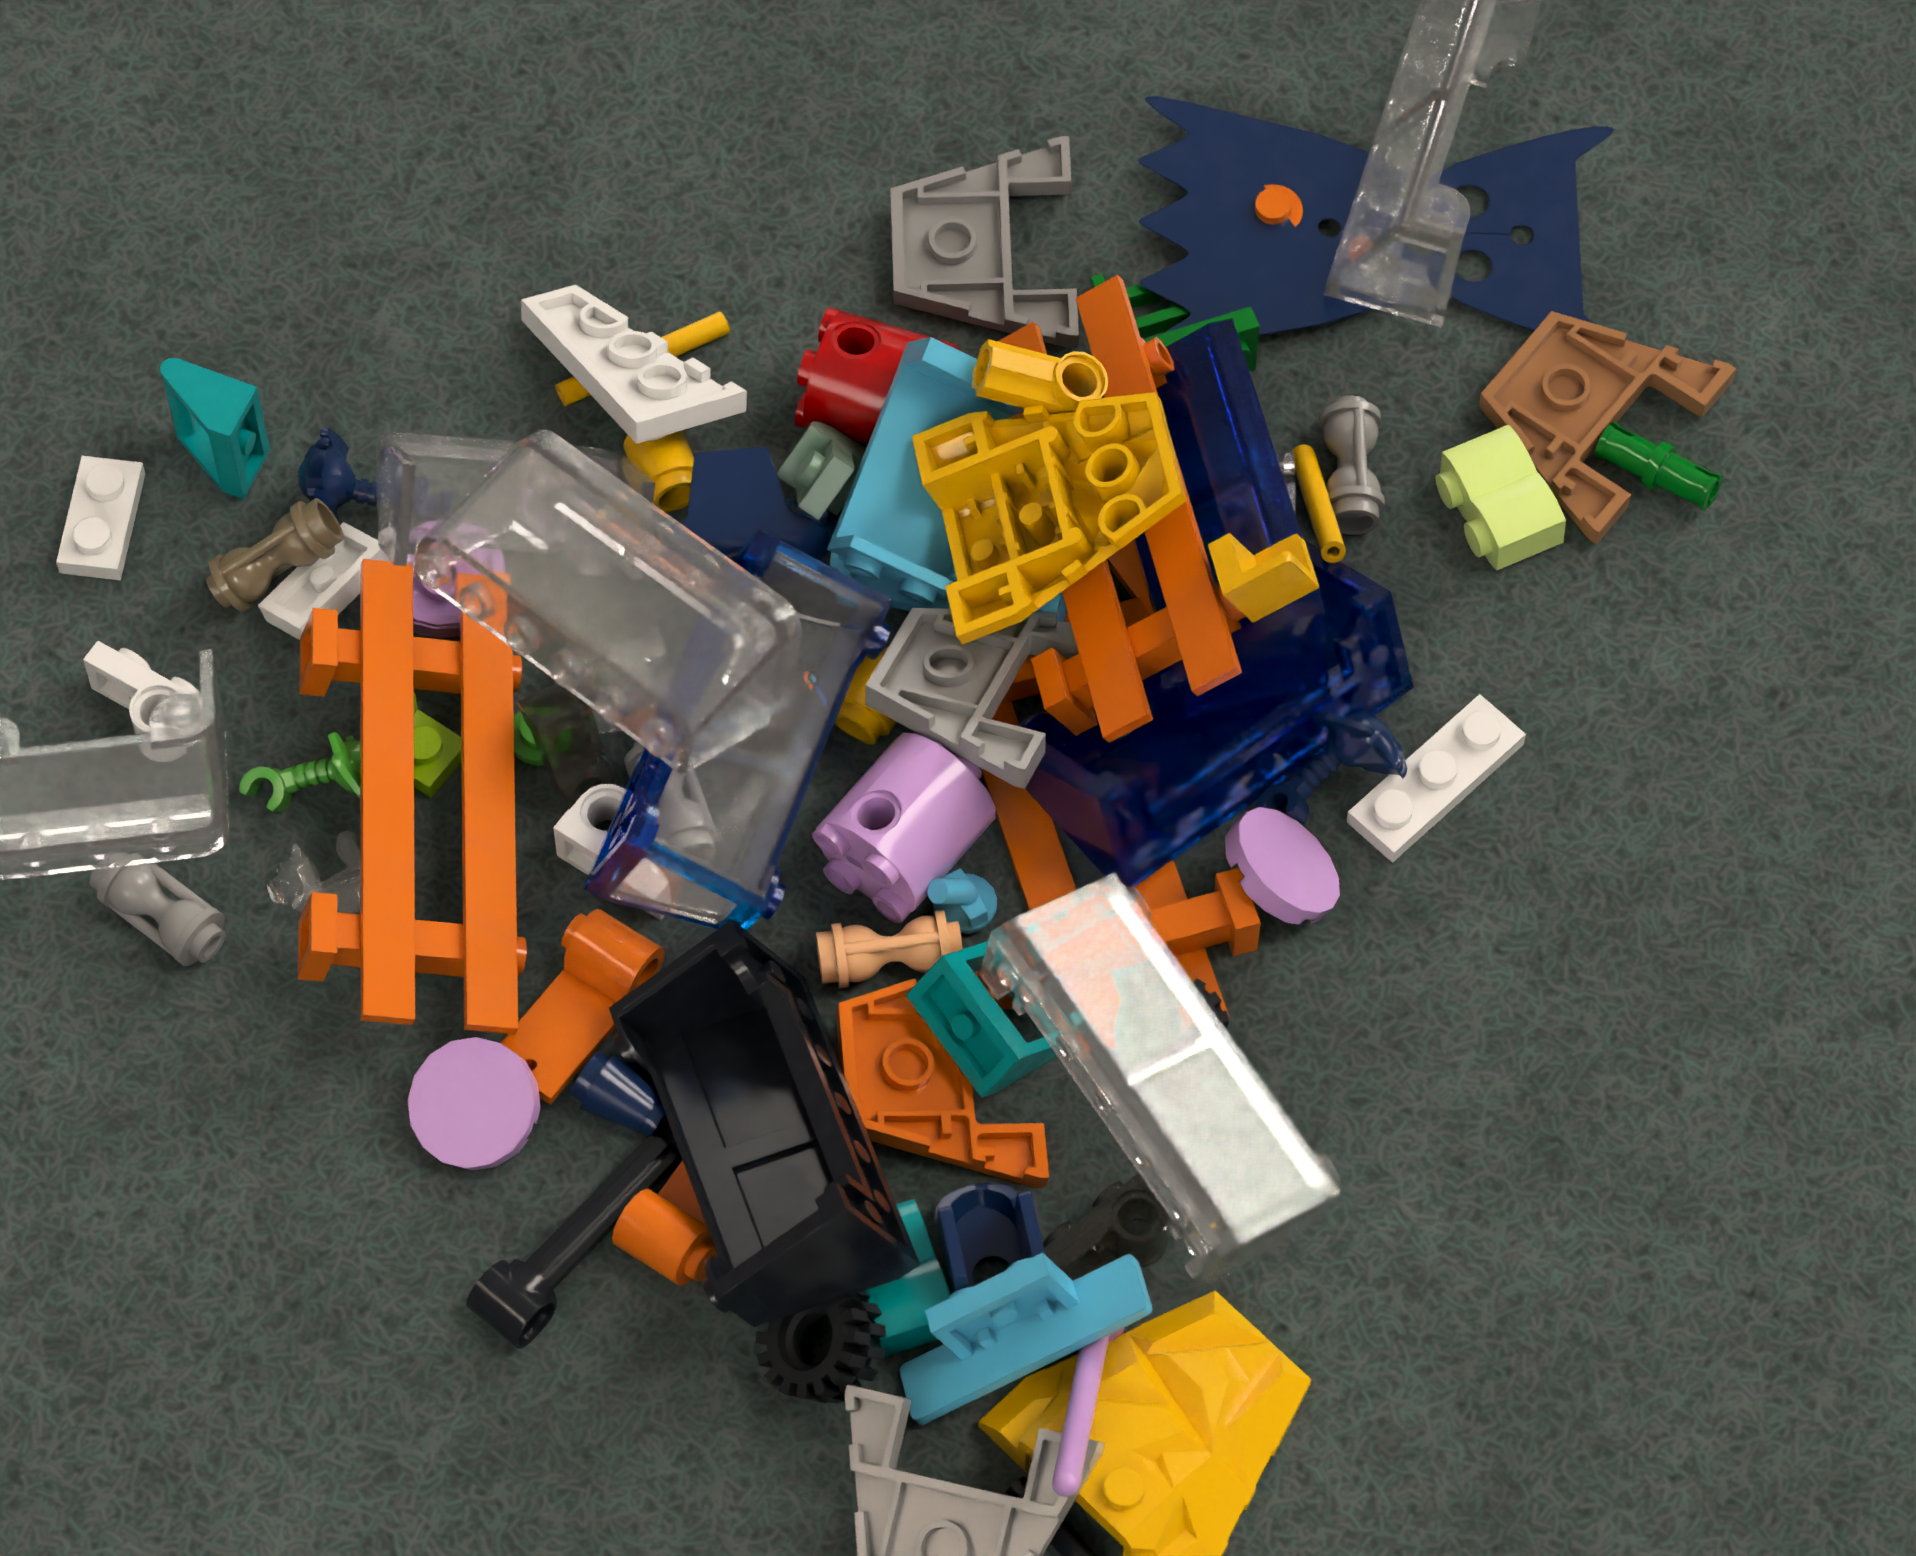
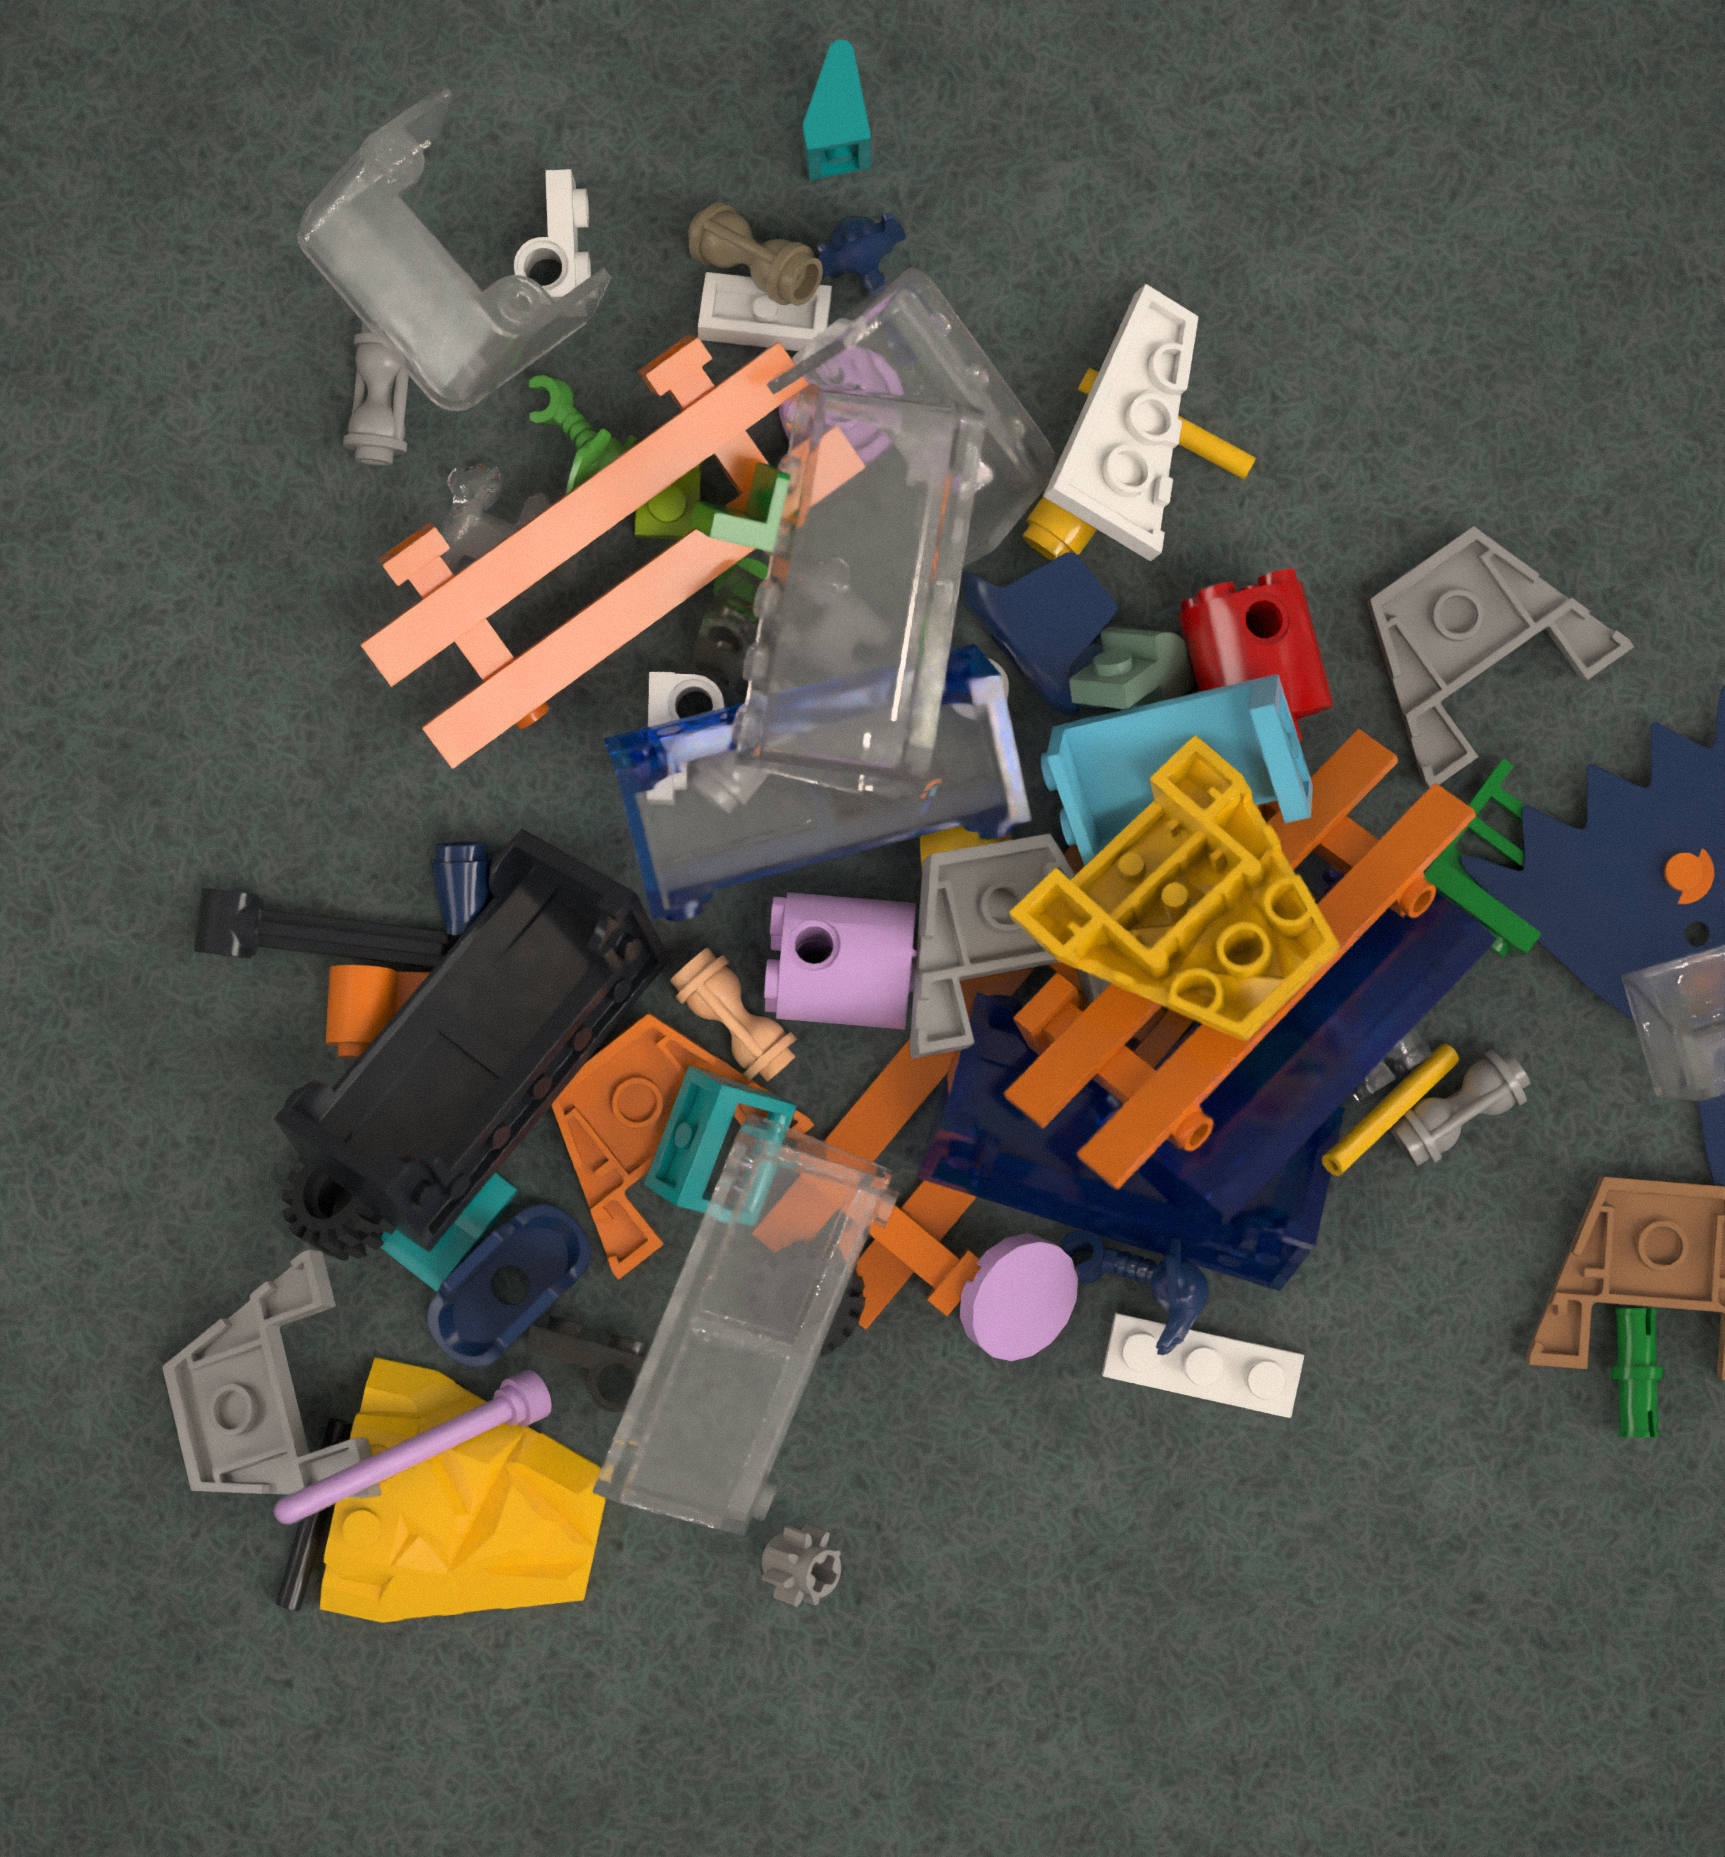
camera: 60 degrees right, 25 degrees up
(100, 518) = (708, 76): white plate -> none
(473, 1103) = (374, 773): lavender tile -> none
(489, 642) = (758, 523): none -> panel
(573, 1014) = (502, 795): orange door -> none
(964, 900) = (821, 1048): medium azure plate -> none
(1016, 1327) = (448, 1360): medium azure bracket -> none
(1035, 378) = (1301, 819): yellow piece -> none
(1263, 580) = (1230, 1145): yellow panel -> none
(1398, 1173) = (801, 1565): none -> light grey gear
(1501, 498) = (1510, 1257): yellowish green brick -> none

